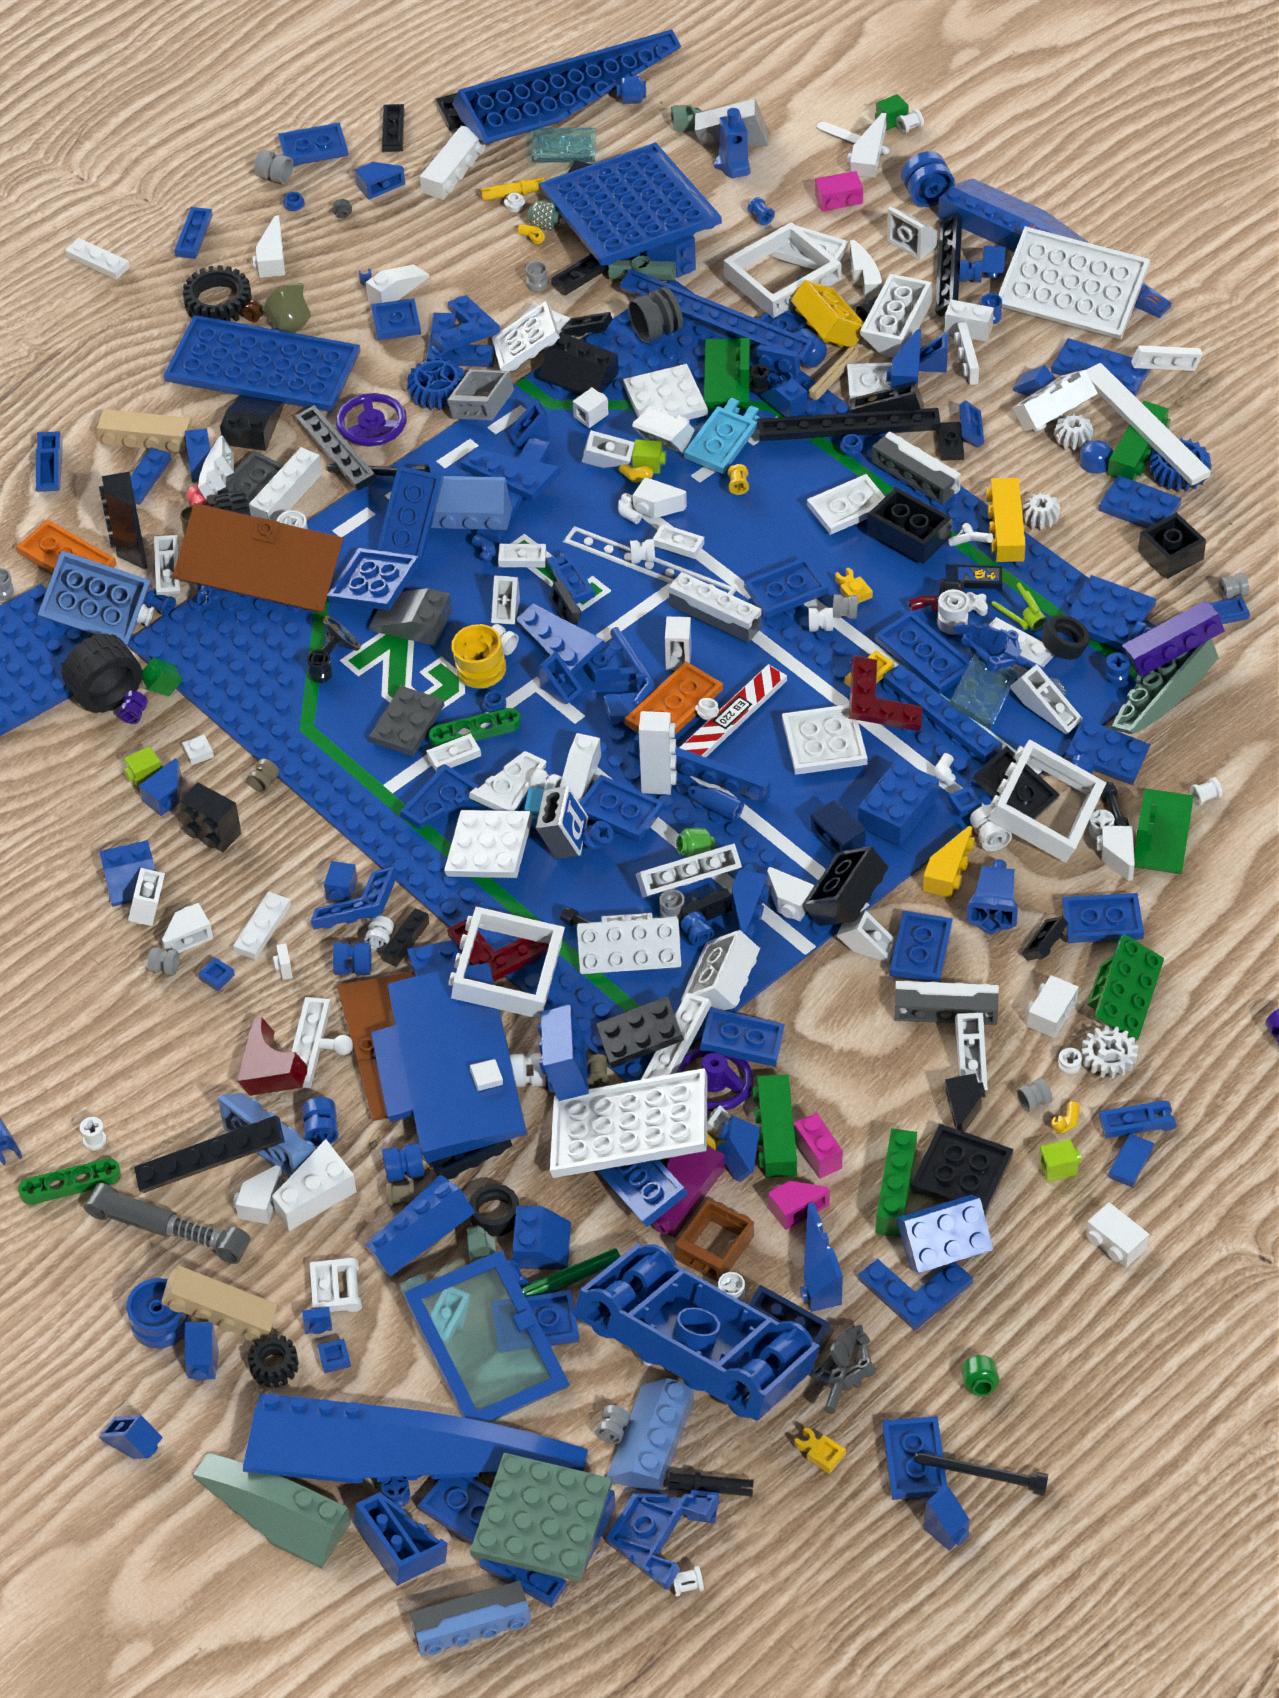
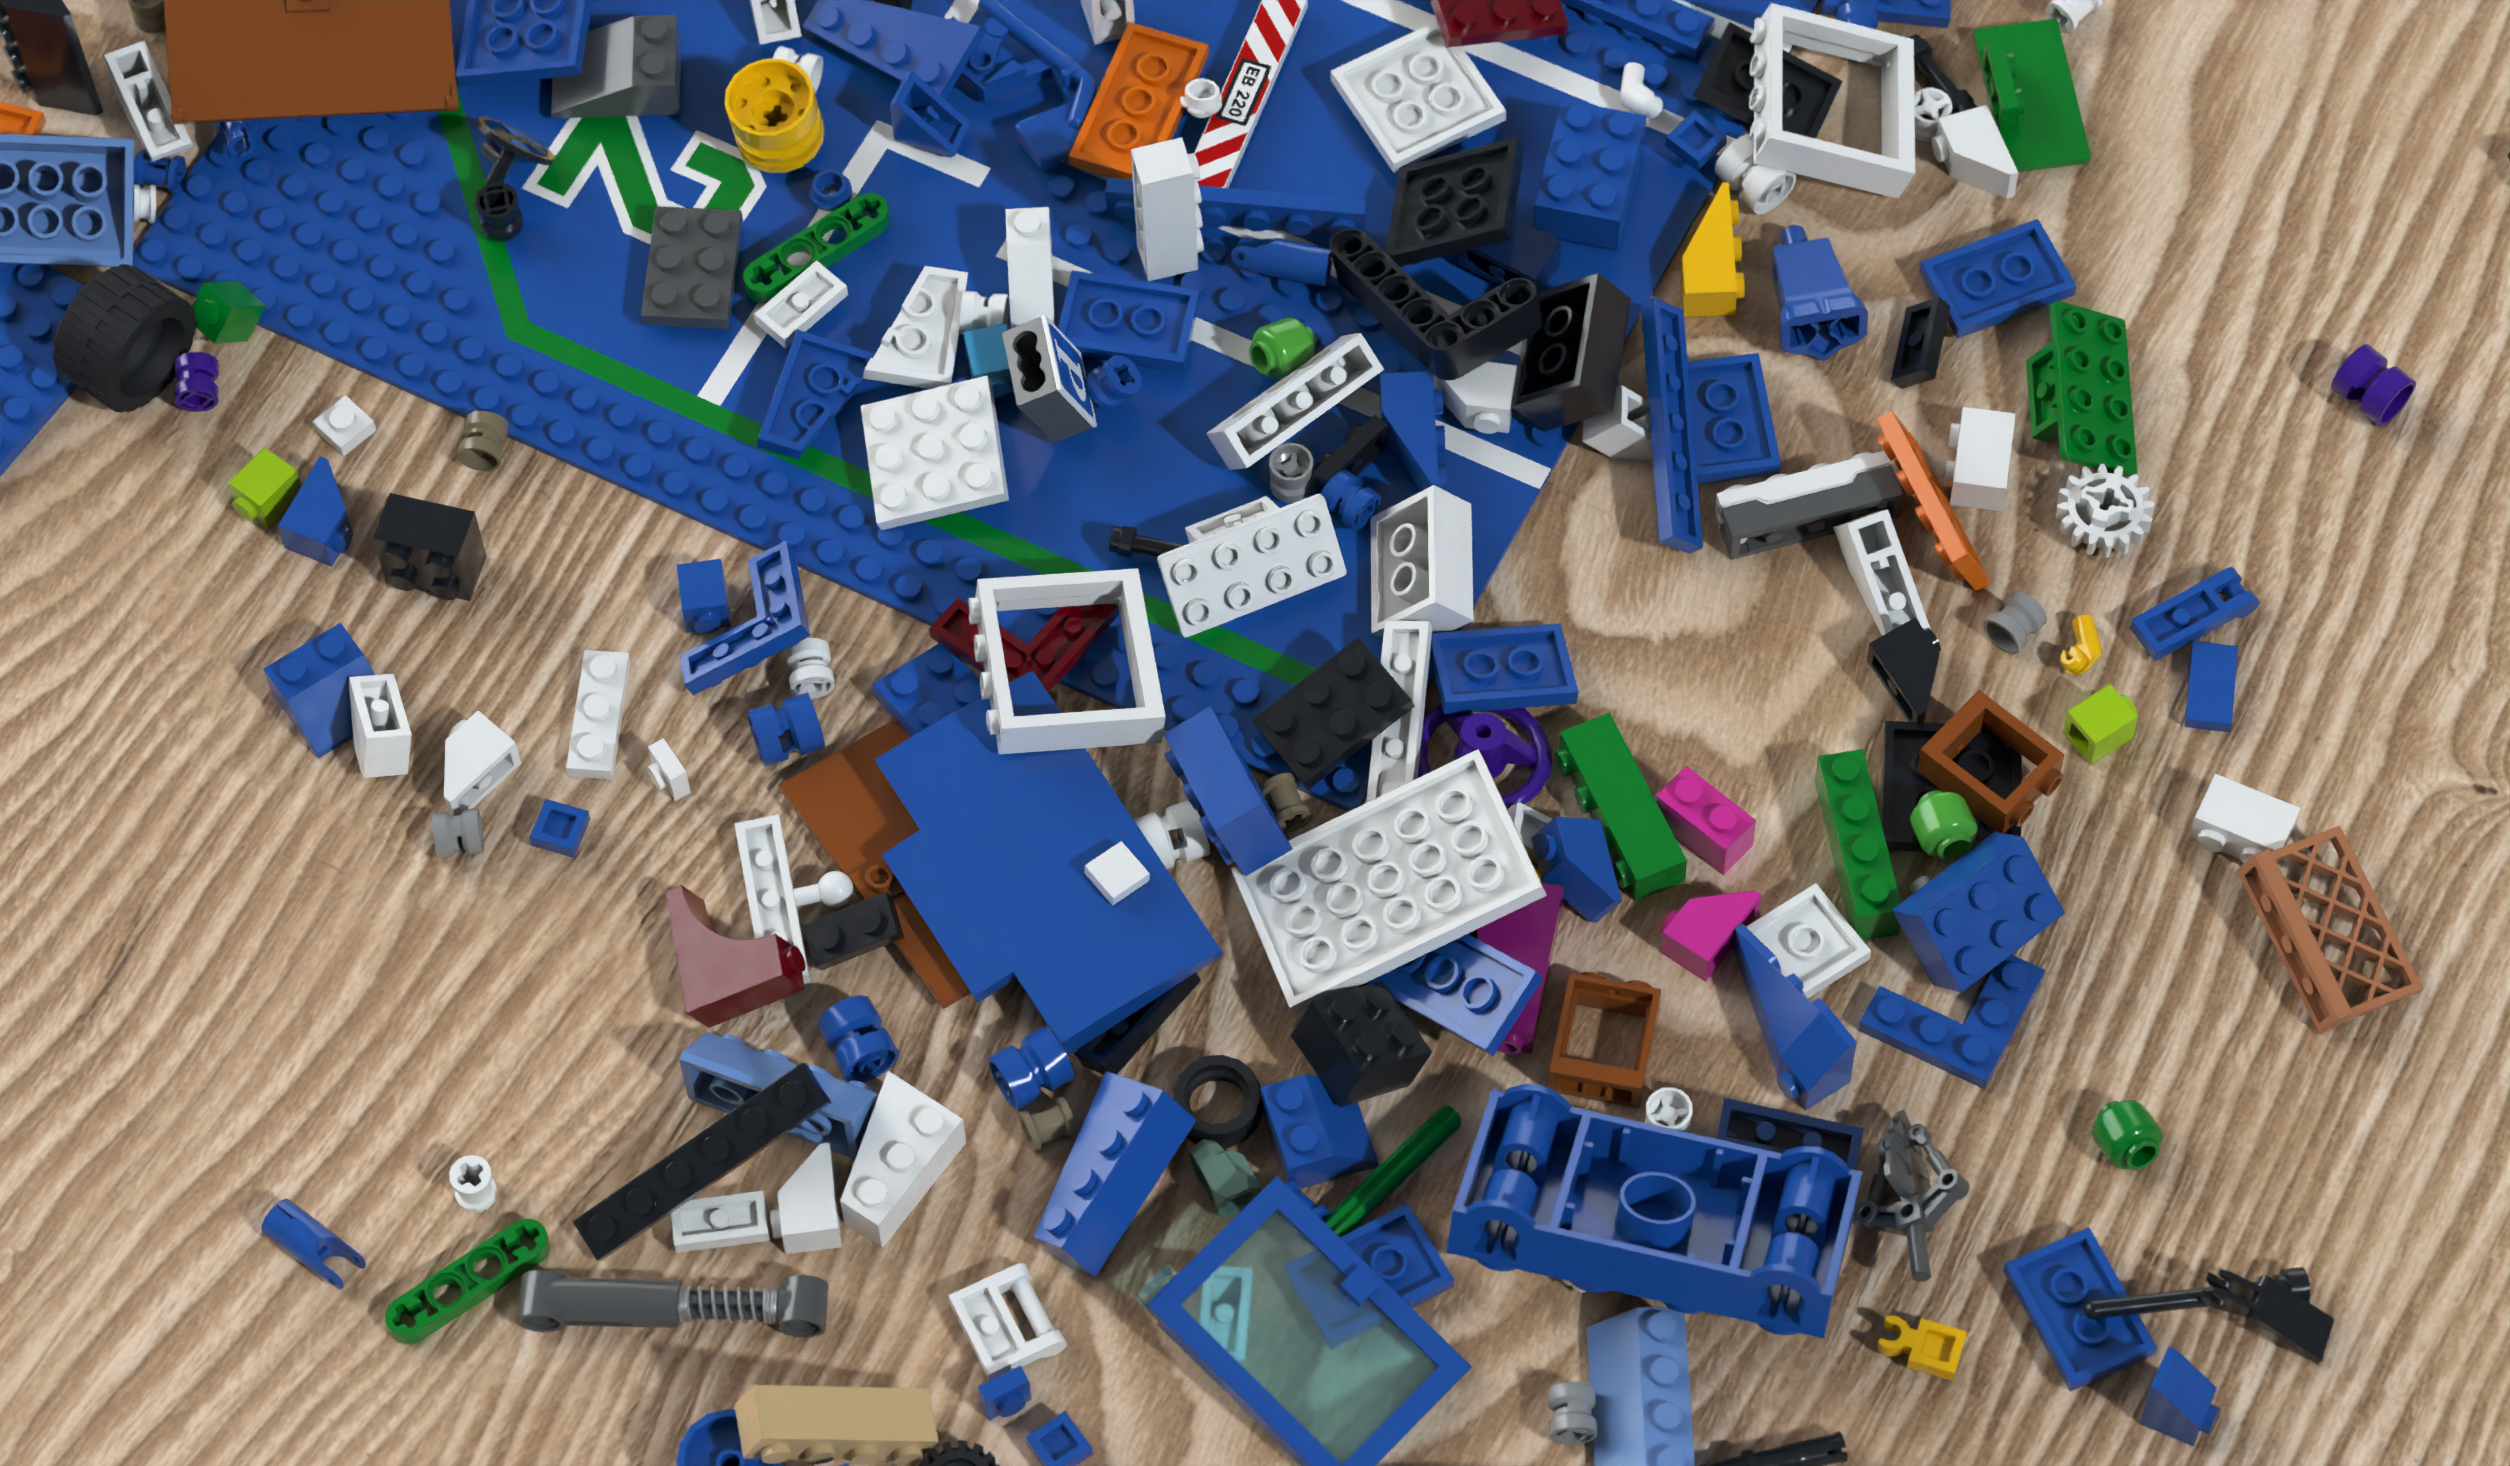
camera: 20 degrees left, 10 degrees up
(209, 1190) = (720, 1222): none -> white plate
(342, 1067) = (853, 931): none -> black plate
(405, 937) = (857, 661): black piece -> none
(580, 1201) = (1361, 1043): none -> black brick
(782, 861) = (1440, 341): none -> black beam
(816, 795) = (1455, 202): none -> black plate
(848, 1224) = (1811, 940): none -> white plate
(886, 940) = (1671, 426): none -> blue plate
(944, 1183) = (1944, 825): none -> bright green head
(974, 1139) = (1980, 712): none -> dark orange window
(1012, 1019) = (1933, 506): none -> orange plate
(1021, 1490) = (2274, 1310): none -> black arm
(1072, 1054) = (2042, 557): white bush -> none
(1118, 1298) = (2295, 938): none -> nougat fence

